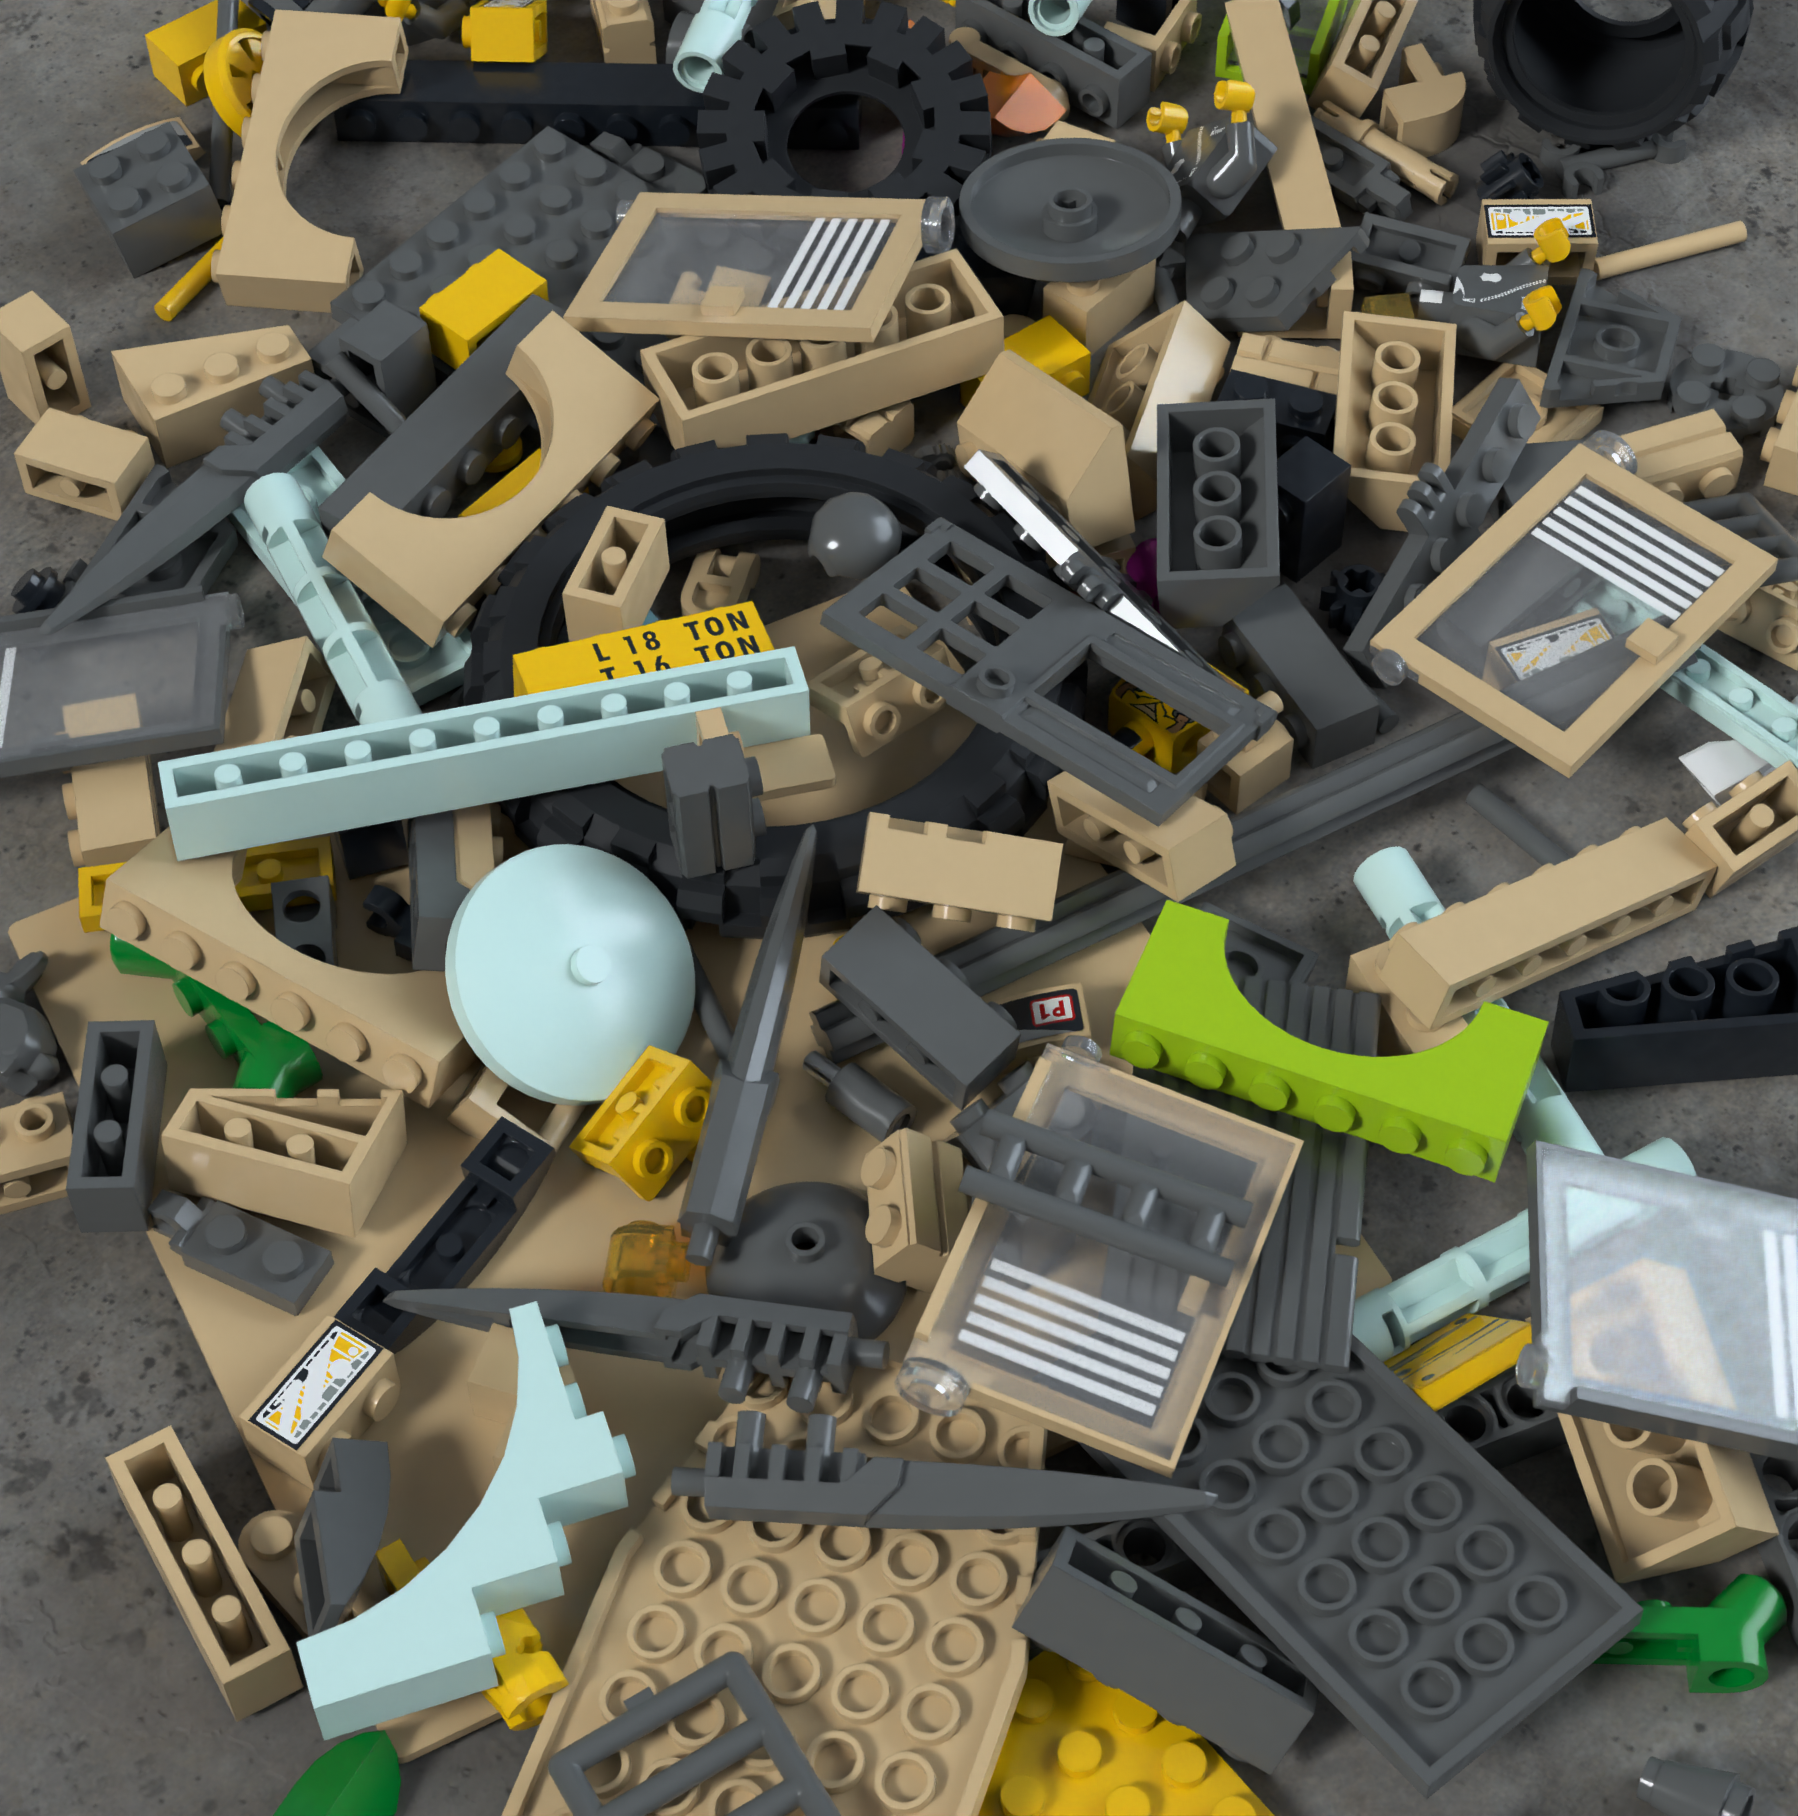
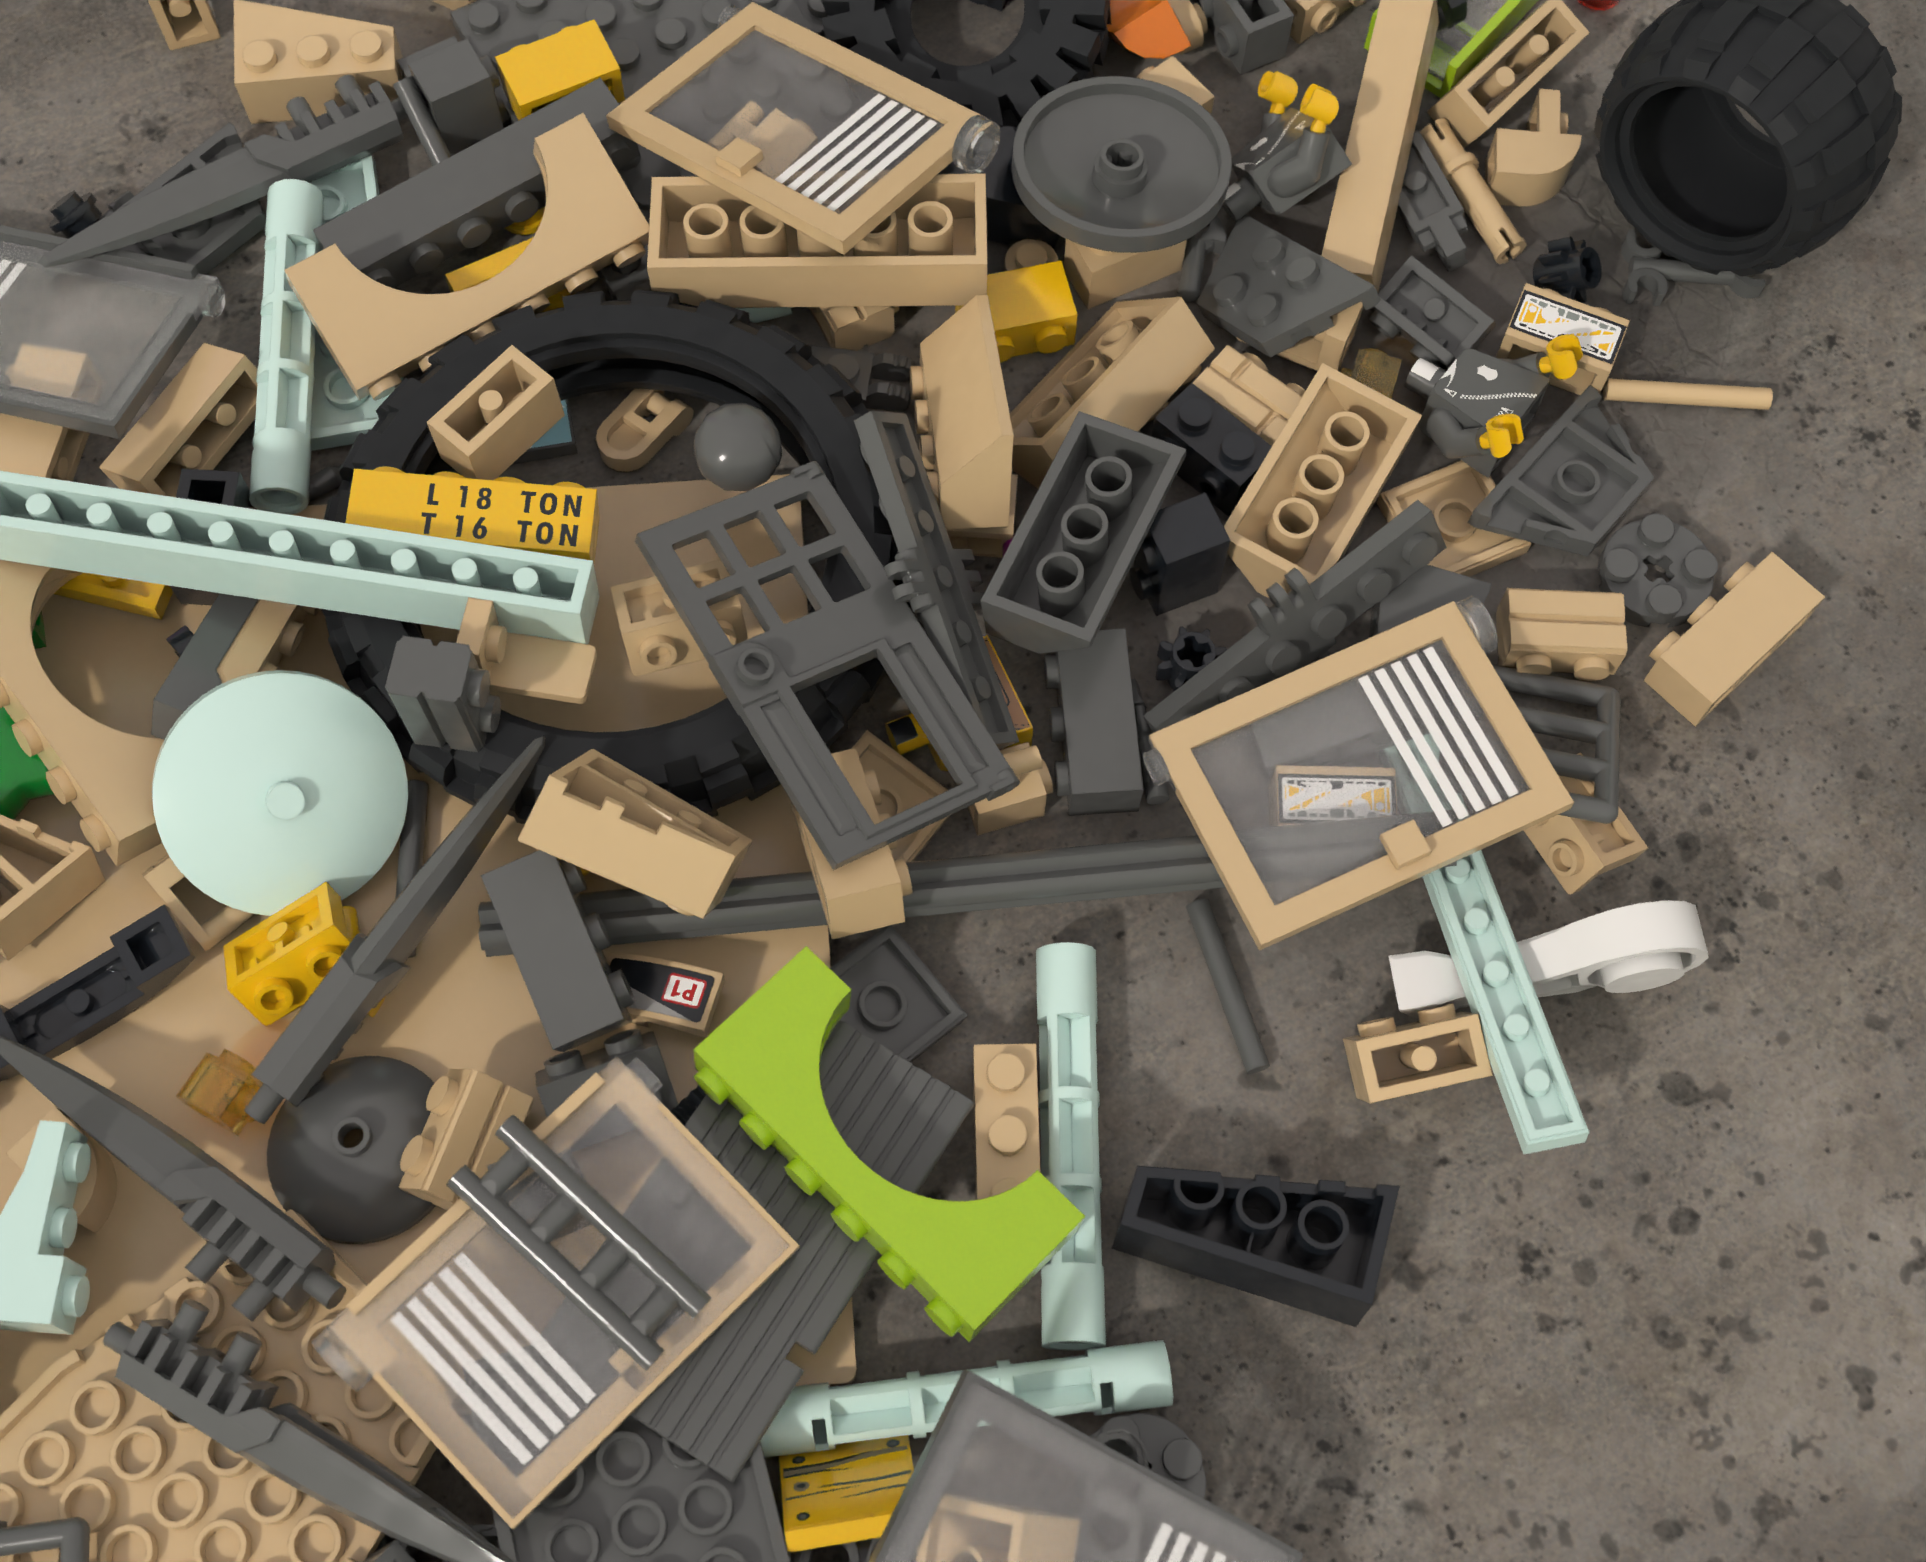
camera: 20 degrees right, 15 degrees up
(83, 463) = (174, 95): tan brick -> none
(308, 927) = (109, 652): dark grey leg -> none
(861, 1097) = (488, 1003): dark grey piece -> none
(1545, 922) = (1167, 1084): tan brick -> none

